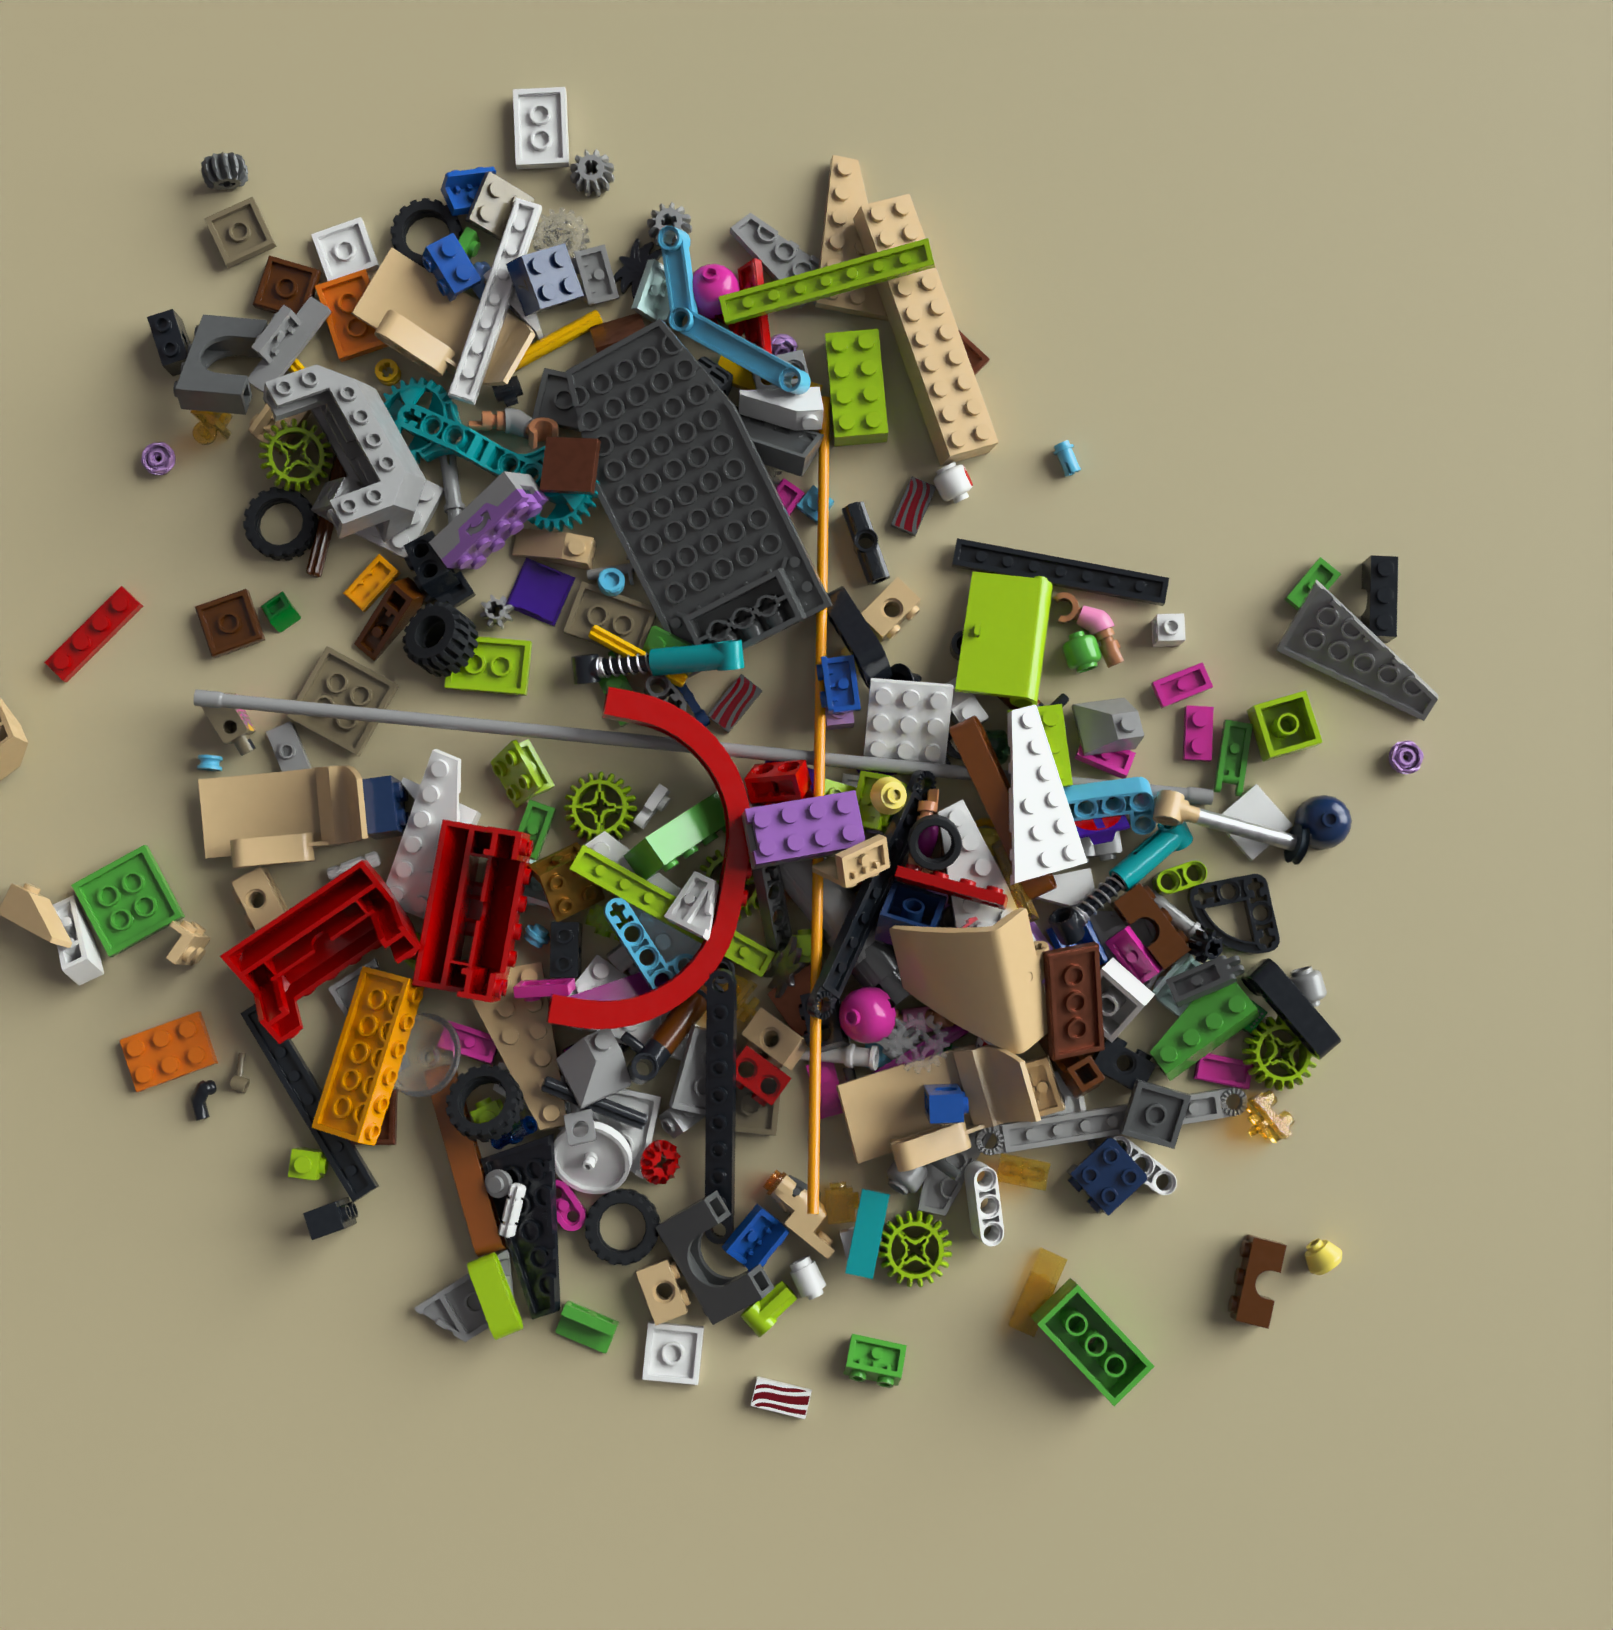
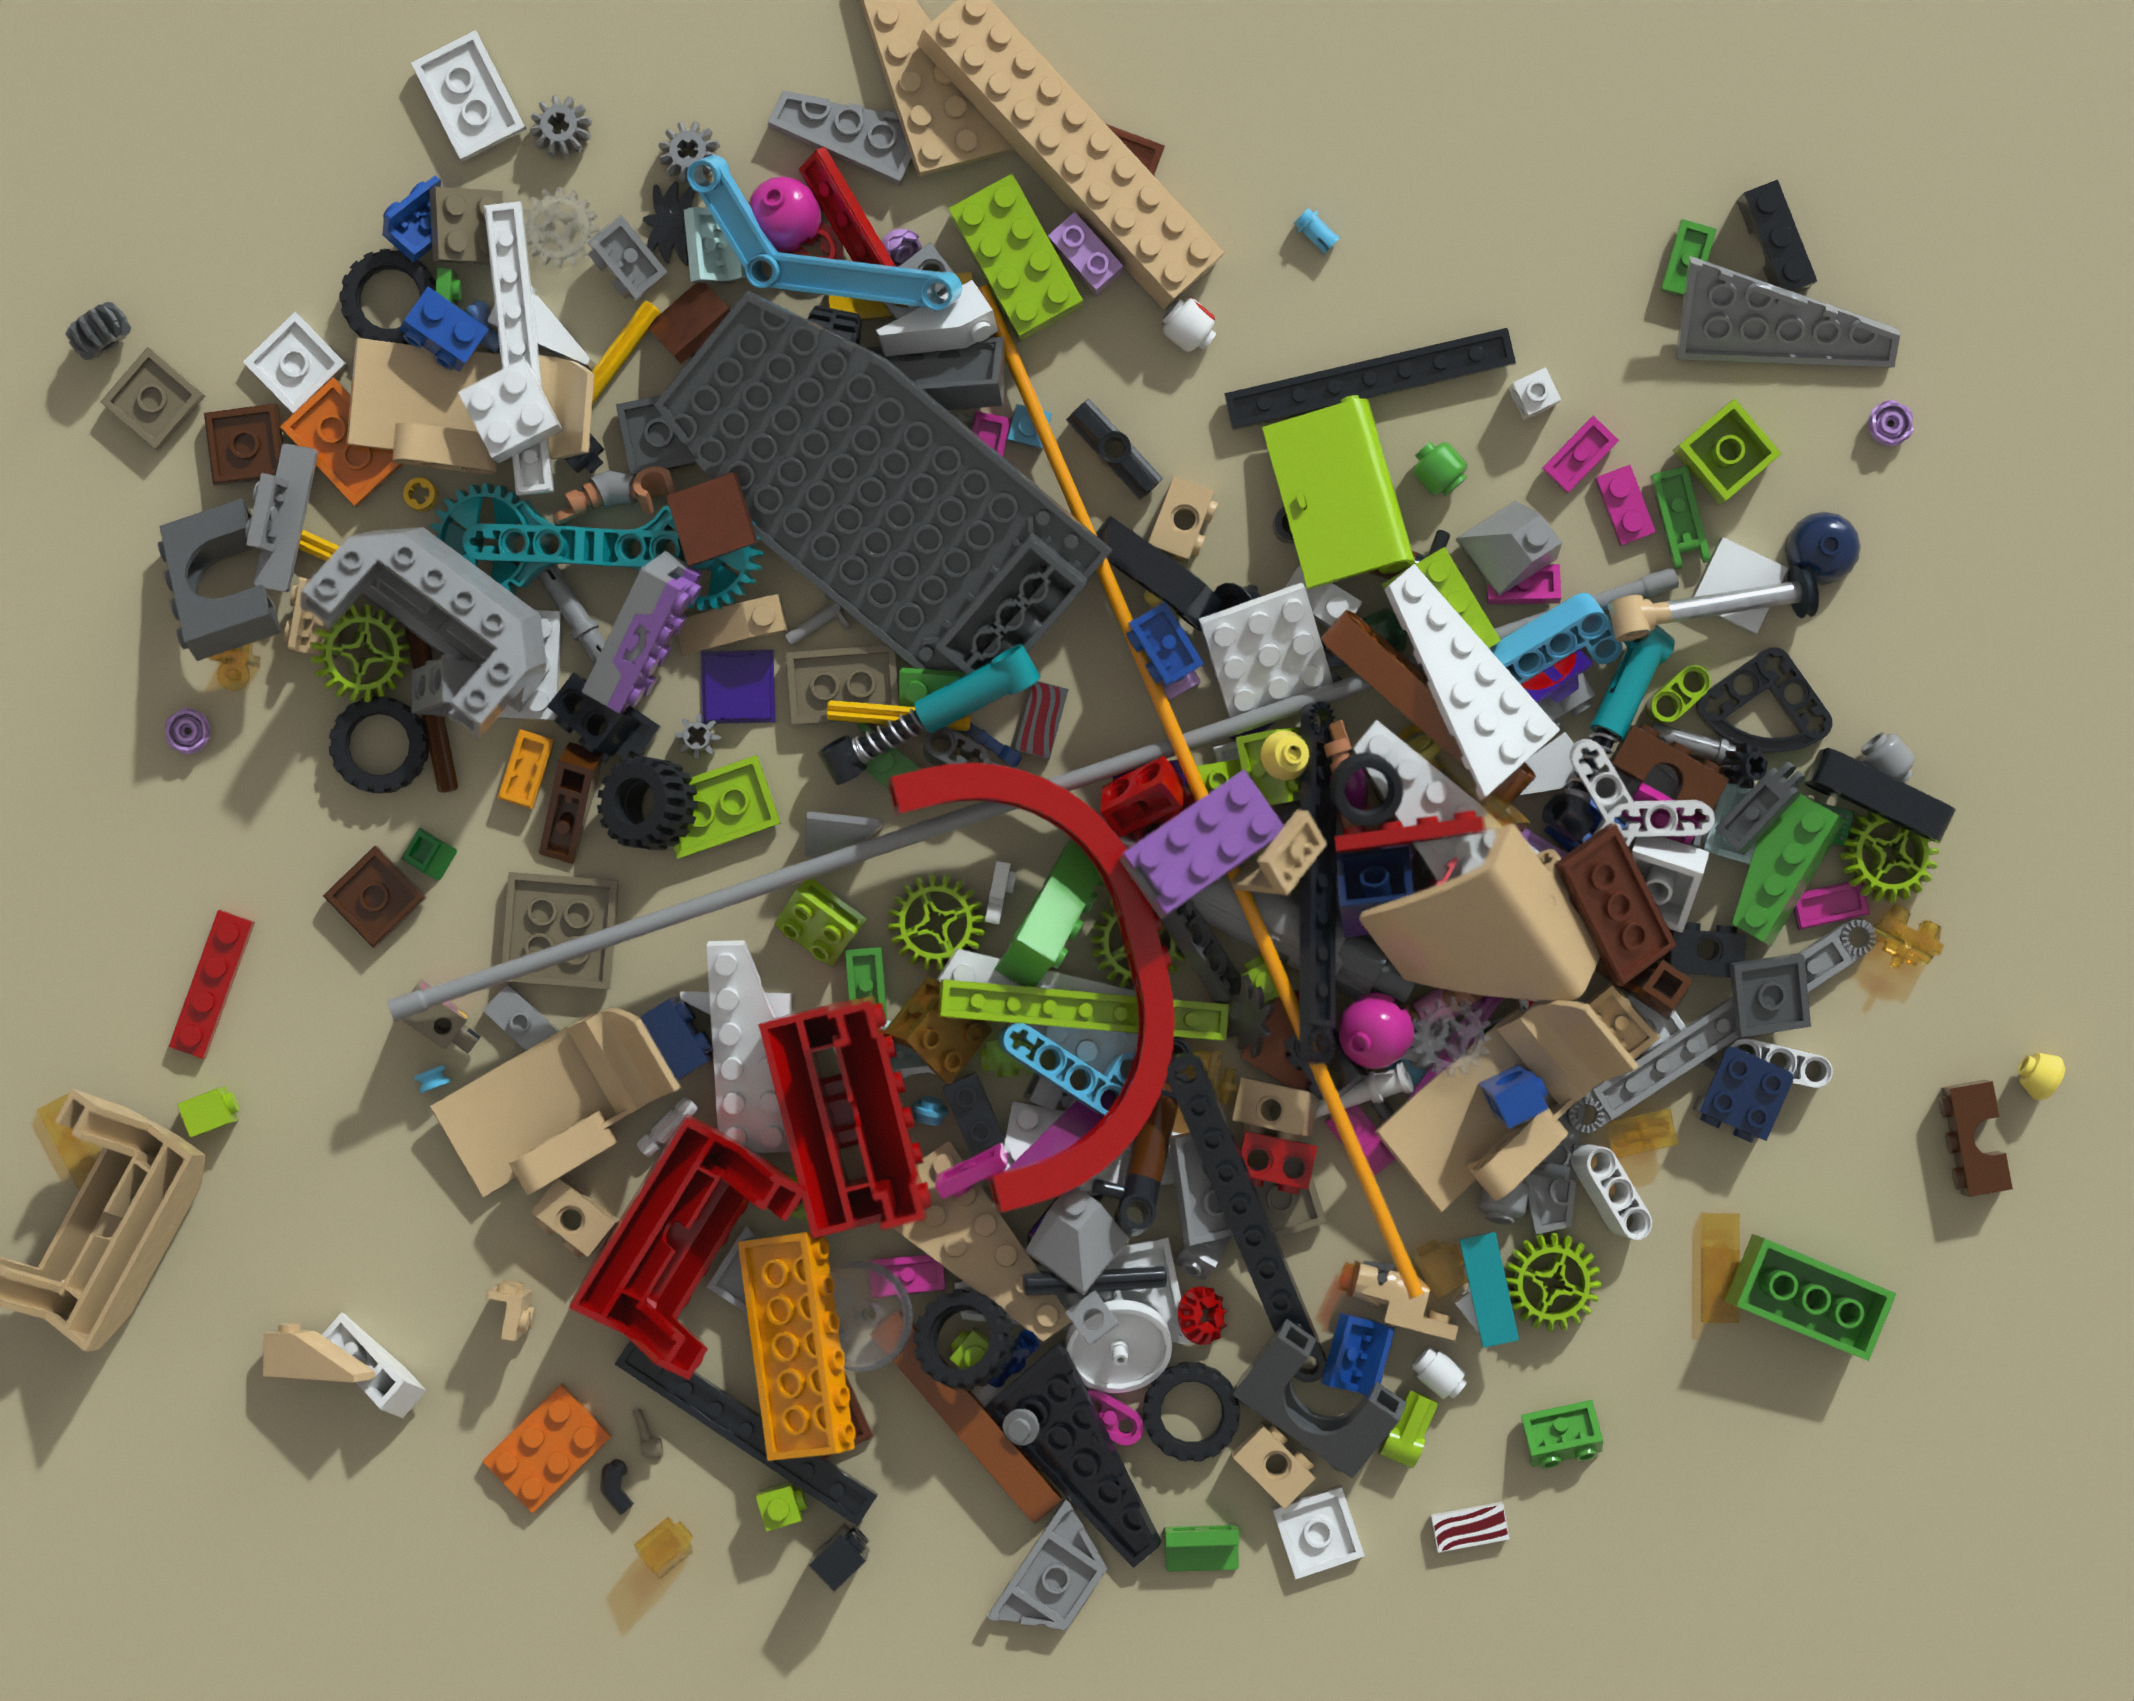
camera: 30 degrees left, 5 degrees up
(49, 717) = (209, 1111): none -> lime brick
(128, 900) = (412, 1290): bright green plate -> none
(170, 339) = (135, 577): black brick -> none
(214, 1156) = (664, 1547): none -> clear yellow brick
(468, 335) = (510, 411): none -> white brick
(495, 1296) = (1078, 1559): lime beam -> none
(512, 1210) = (1052, 1450): white axle -> none
(544, 279) = (570, 296): brick -> none
(557, 712) = (834, 832): none -> light grey slope
(611, 581) = (823, 637): medium azure tile -> none
(695, 906) = (1111, 992): white wing -> none
(827, 281) = (925, 146): lime plate -> none
(904, 405) = (1085, 254): none -> lavender brick
(913, 506) = (1152, 375): tile -> none
(1097, 623) = (1445, 424): nougat piece -> none
(1109, 929) = (1621, 800): none -> white piece

